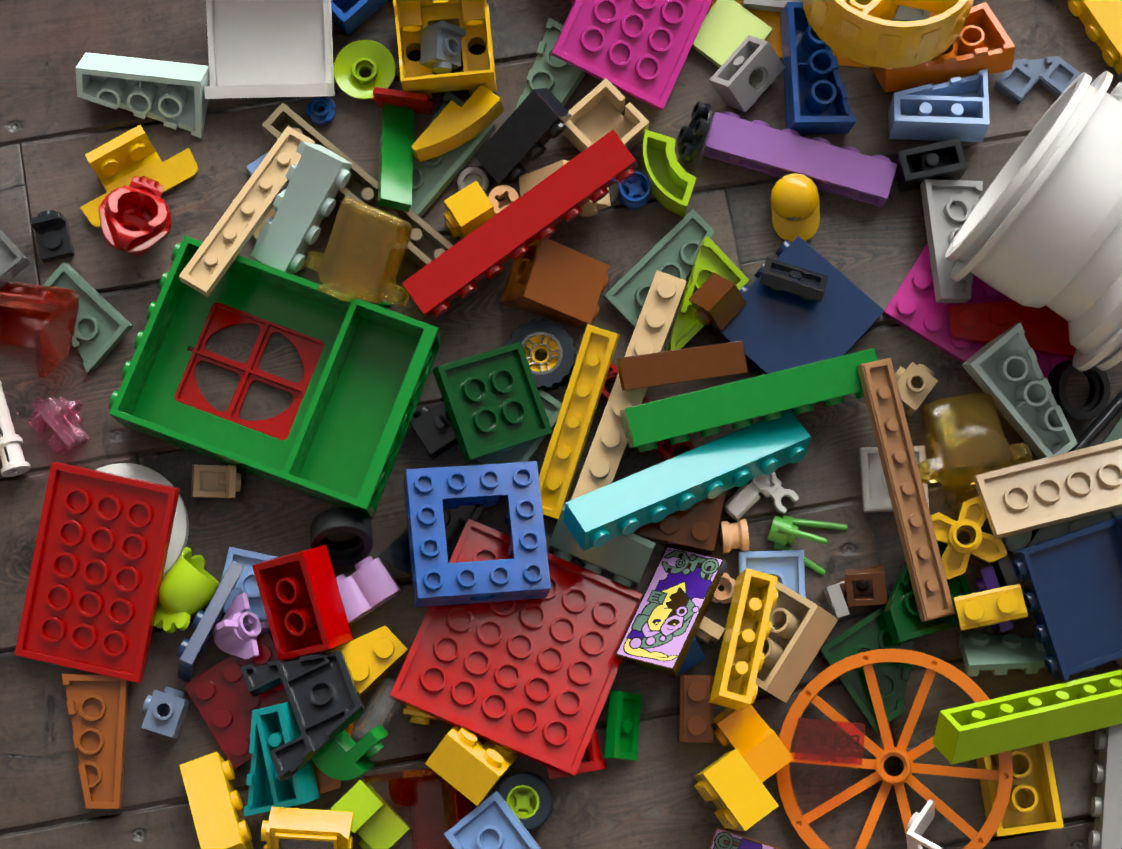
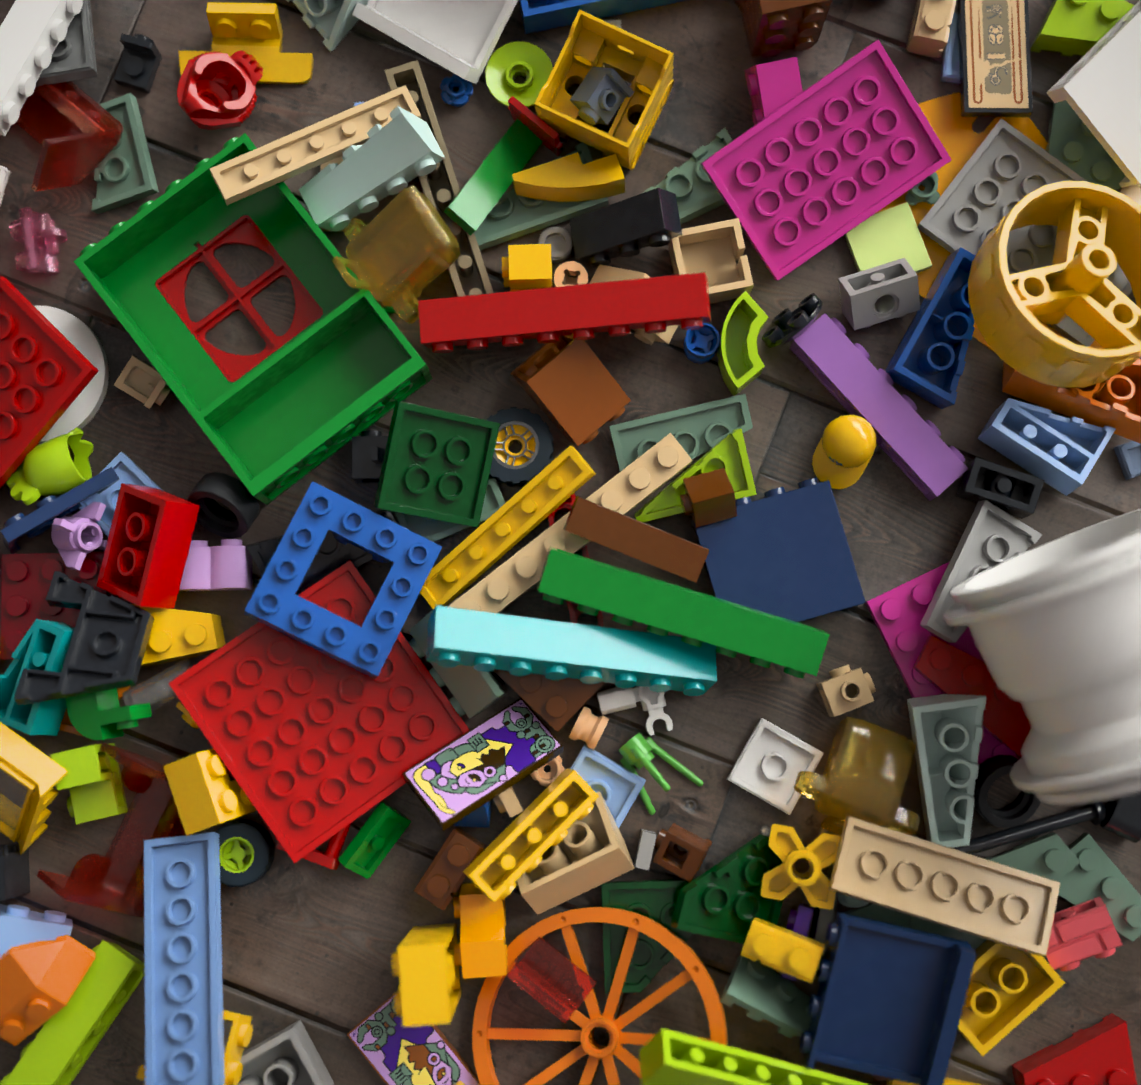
camera: 35 degrees right, 5 degrees up
(793, 279) = (795, 521): black plate -> none
(906, 489) = (774, 788): medium nougat tile -> none

